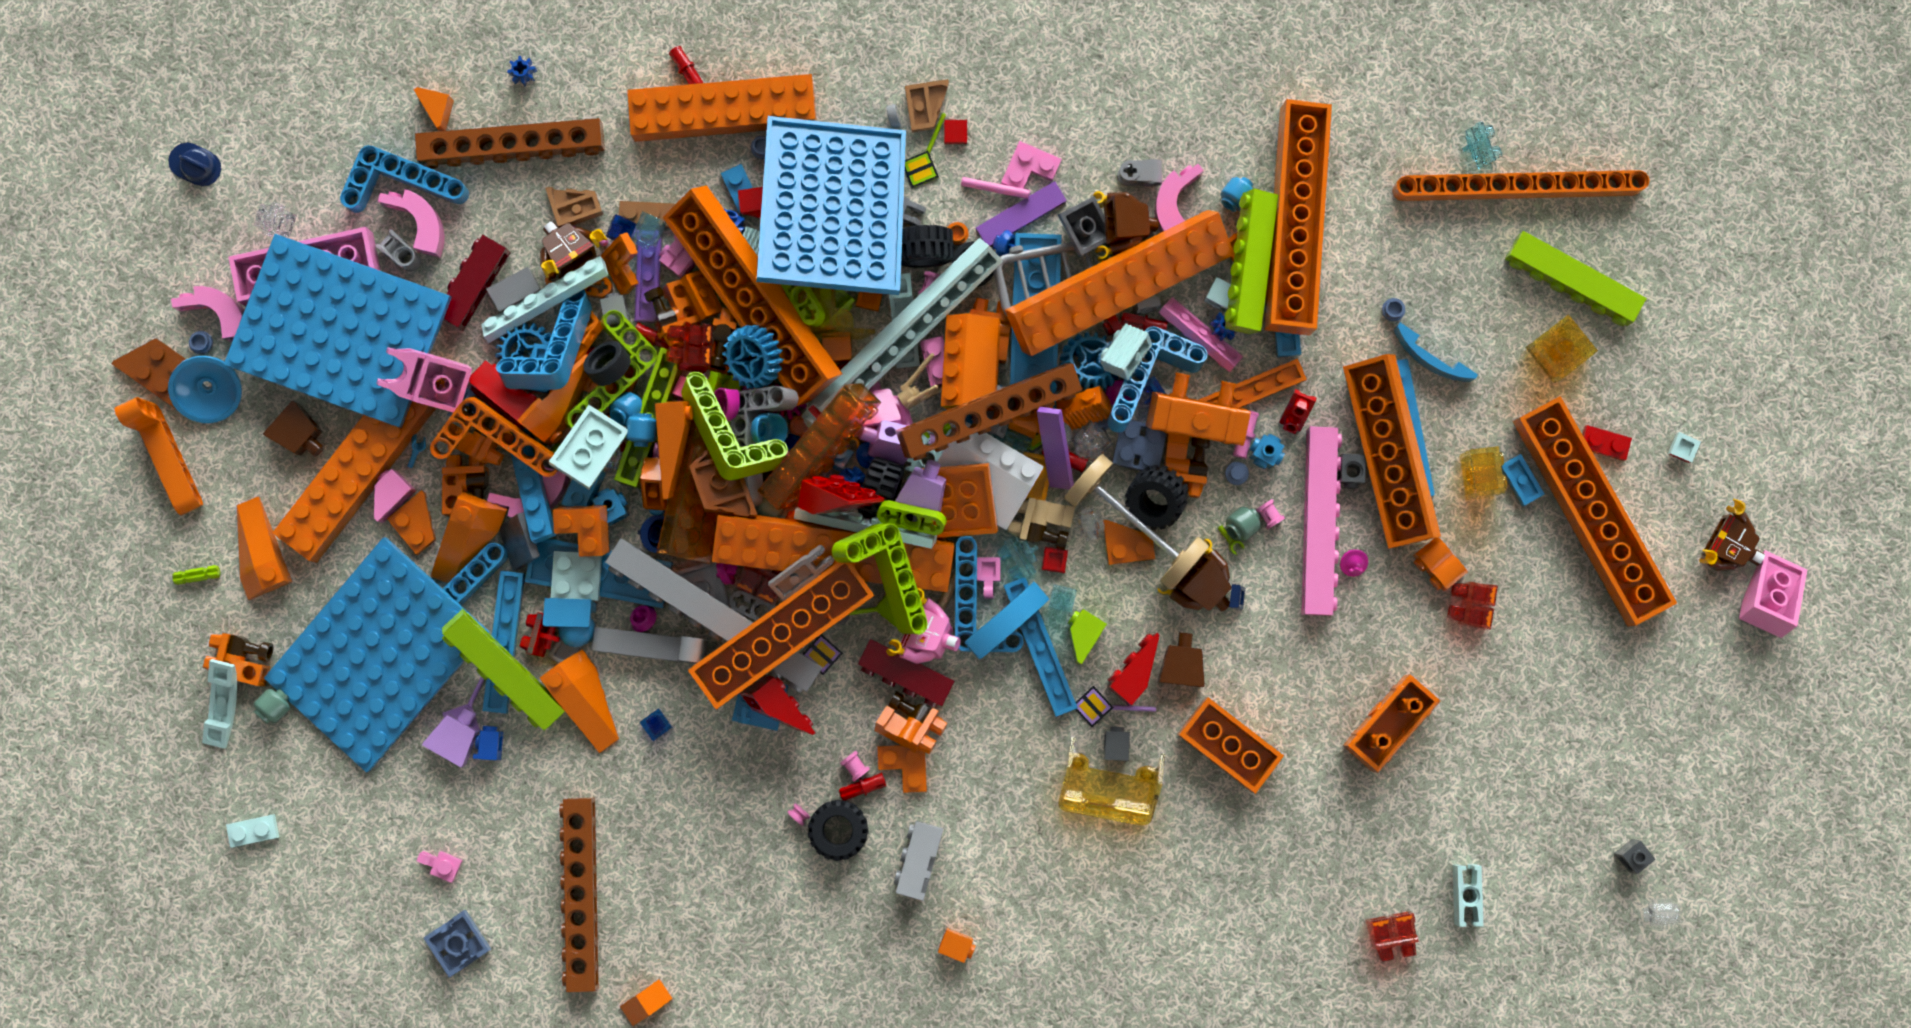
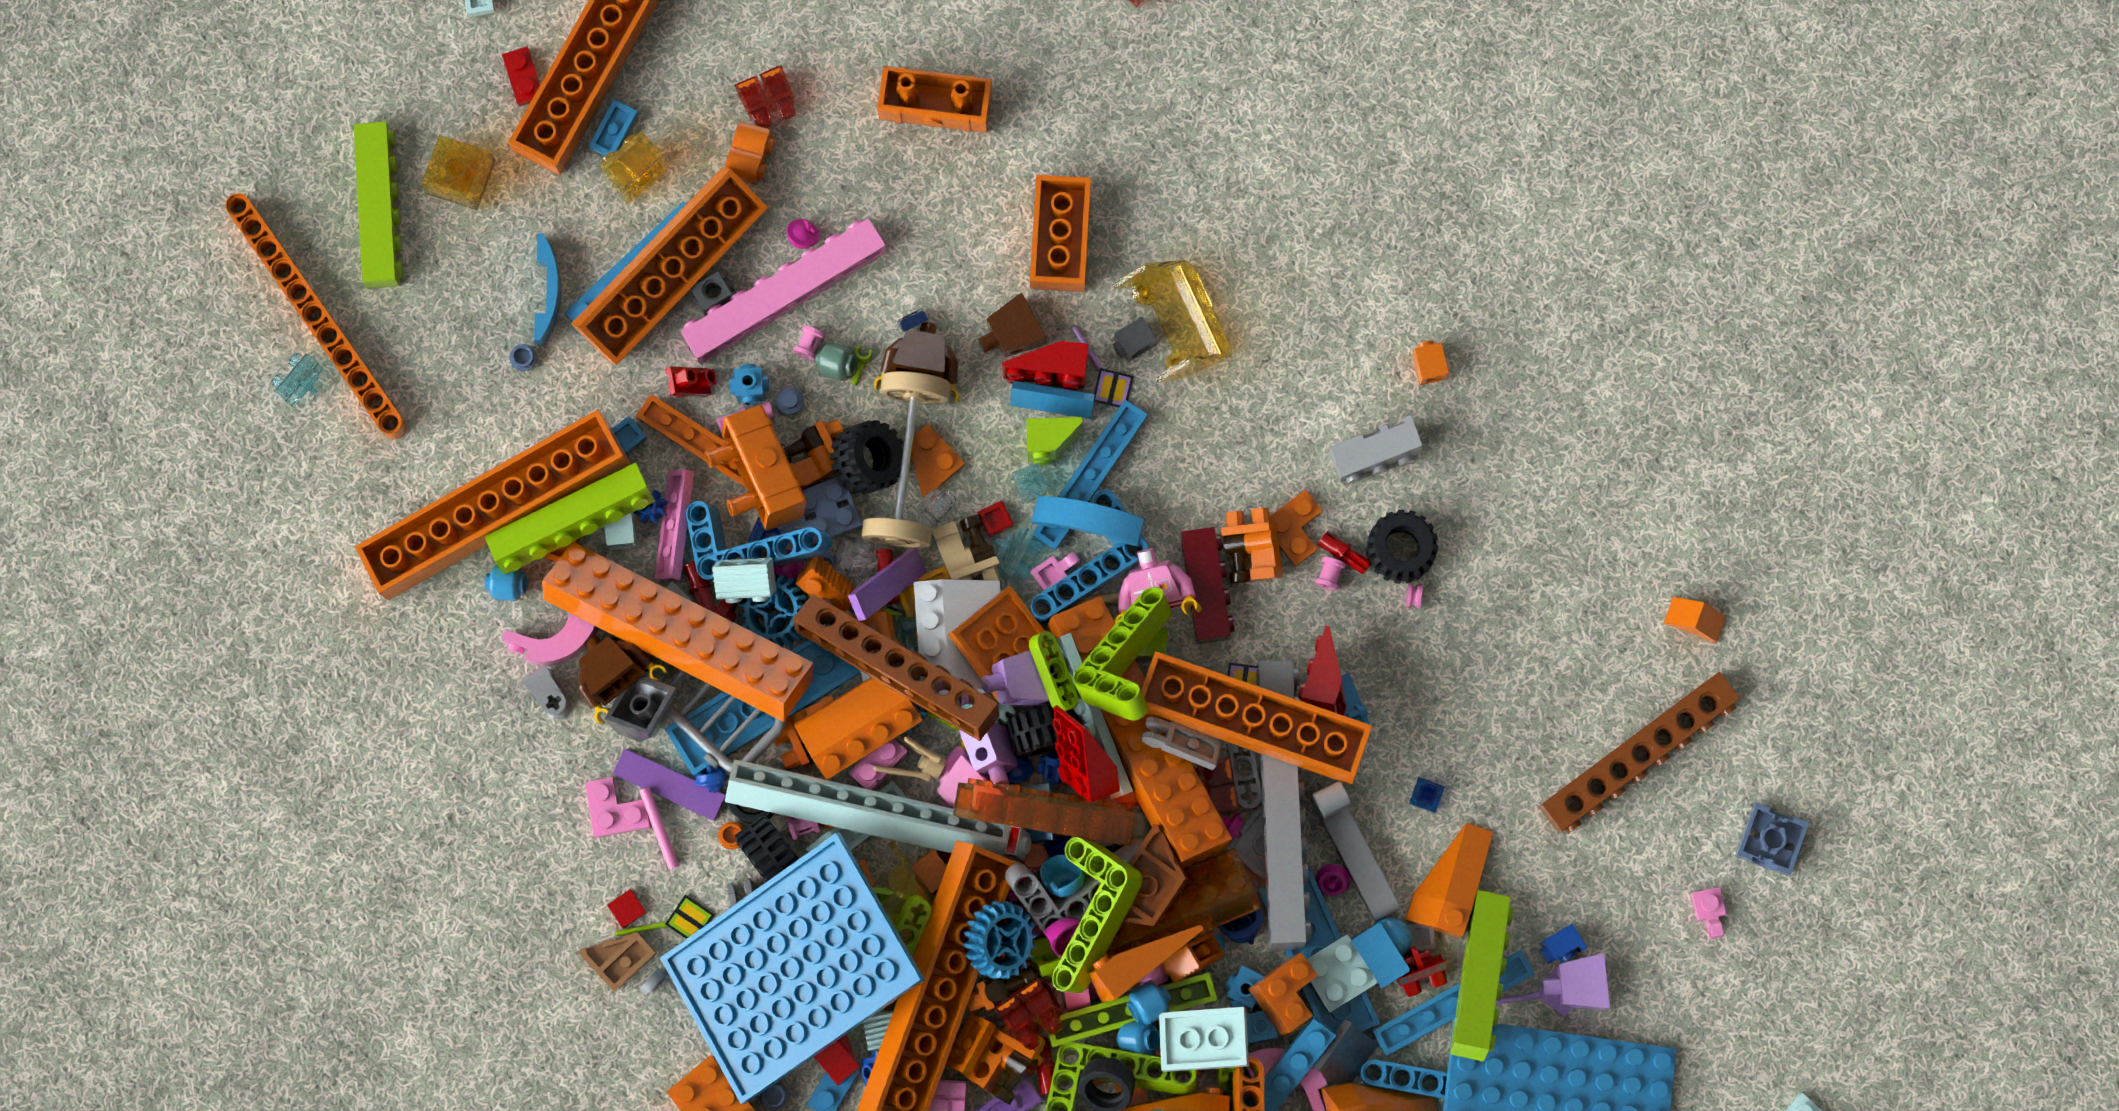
camera: 125 degrees left, 5 degrees down
(1112, 656) = (1052, 399): none -> dark azure tile

